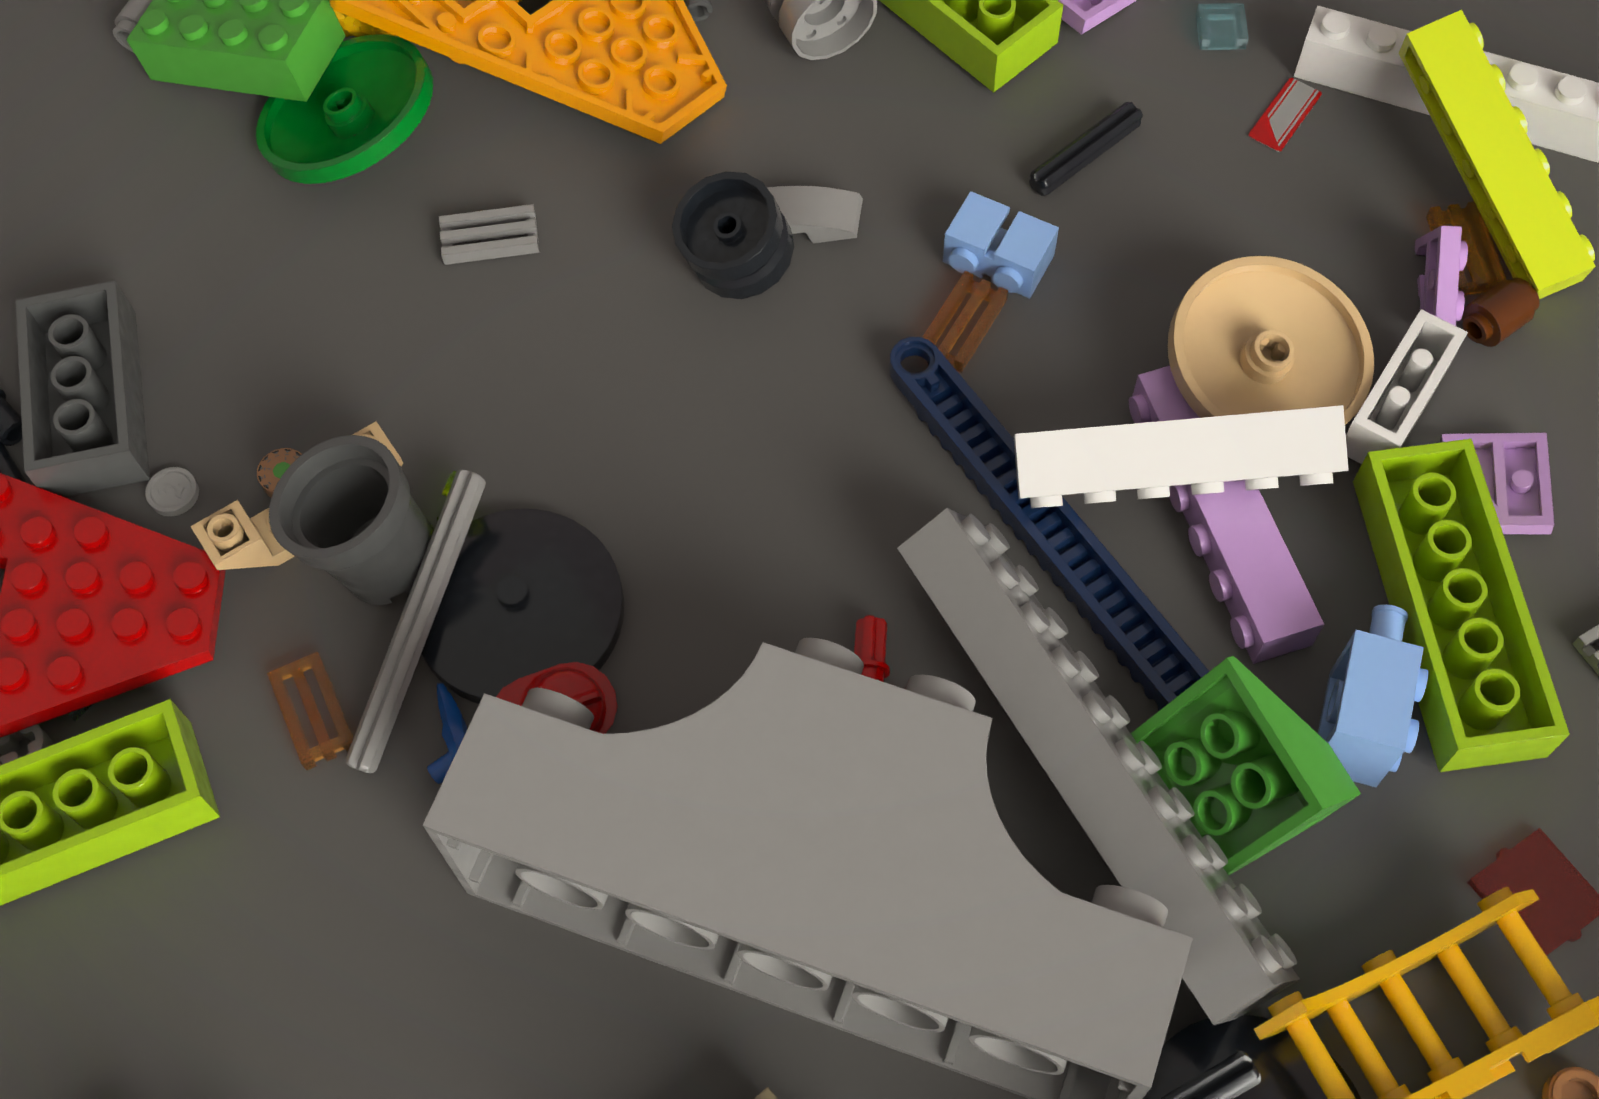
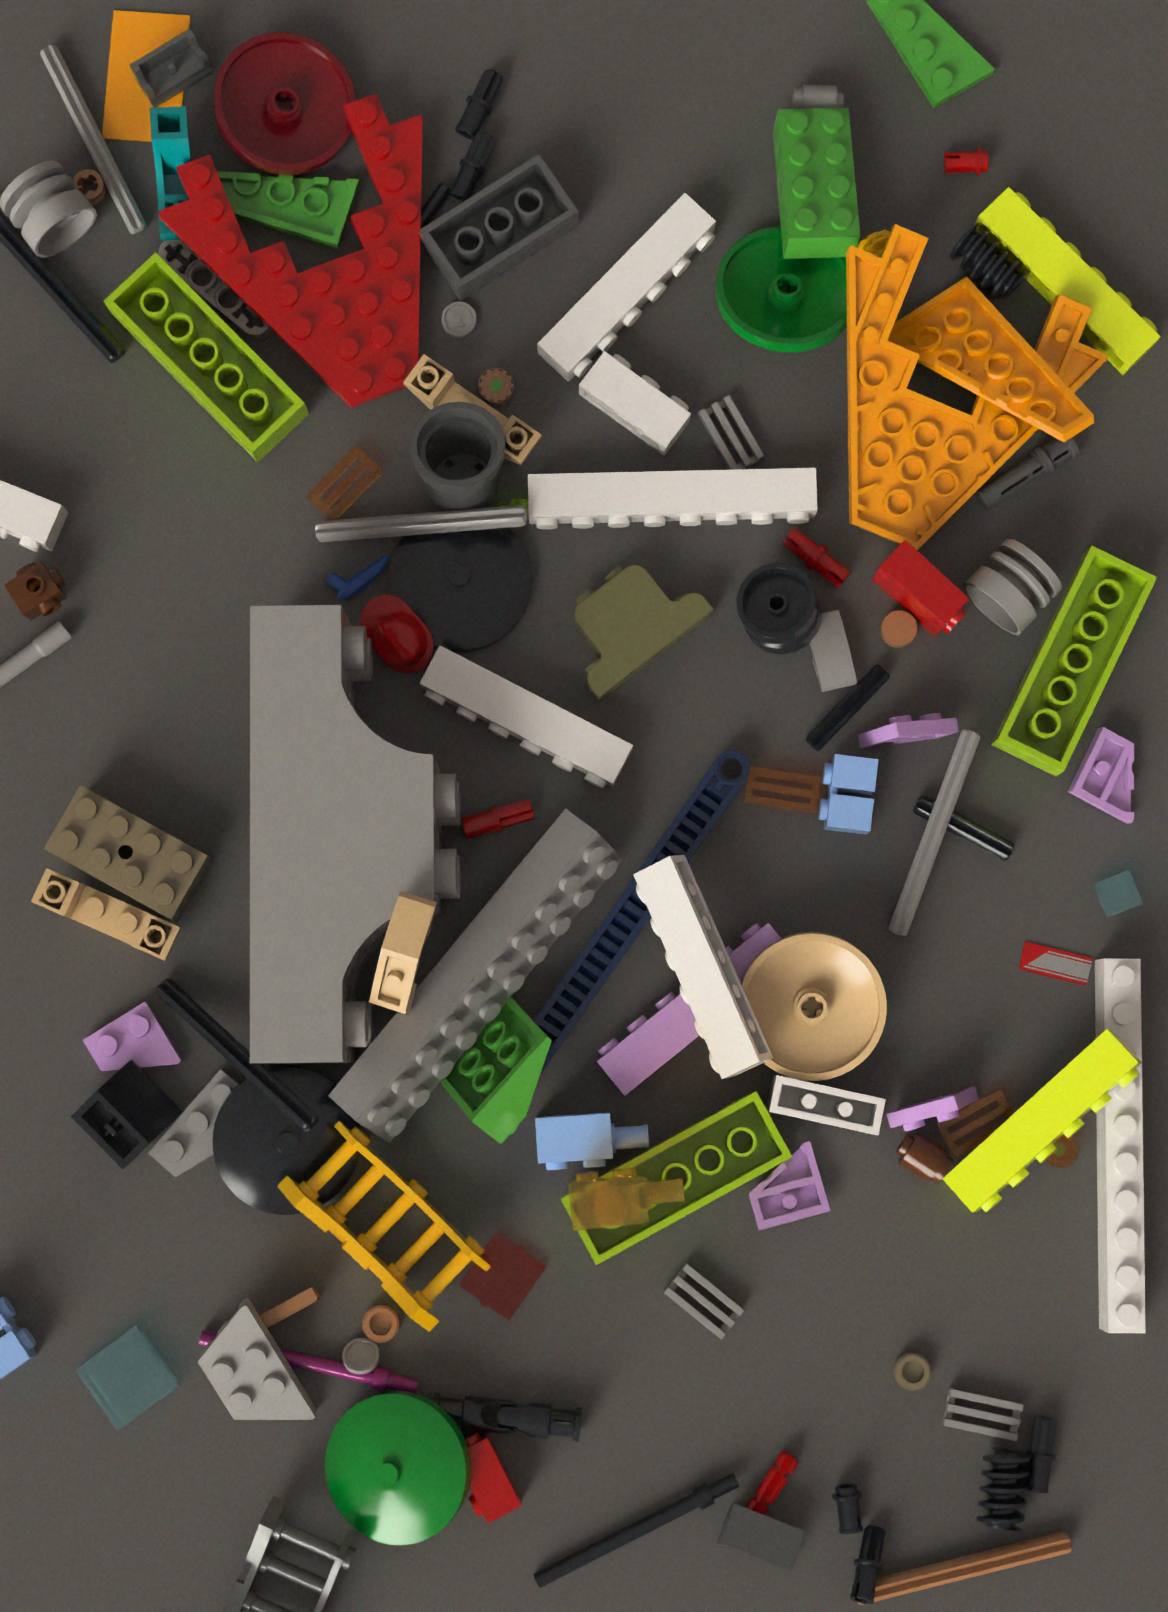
camera: 65 degrees right, 20 degrees up
(245, 284) = (626, 287): none -> white brick
(393, 318) = (635, 402): none -> white brick
(531, 319) = (672, 496): none -> white brick
(673, 192) = (816, 557): none -> red pin
(677, 416) = (632, 625): none -> olive brick
(741, 583) = (526, 717): none -> white brick
(778, 83) = (921, 590): none -> red brick
(812, 138) = (898, 629): none -> medium nougat tile
(888, 220) = (847, 707): none -> black axle
(943, 155) = (905, 730): none -> lavender wing
(1059, 783) = (402, 952): none -> tan slope
(1085, 169) = (934, 832): none -> light grey axle
(1491, 657) = (618, 1198): none -> clear yellow brick

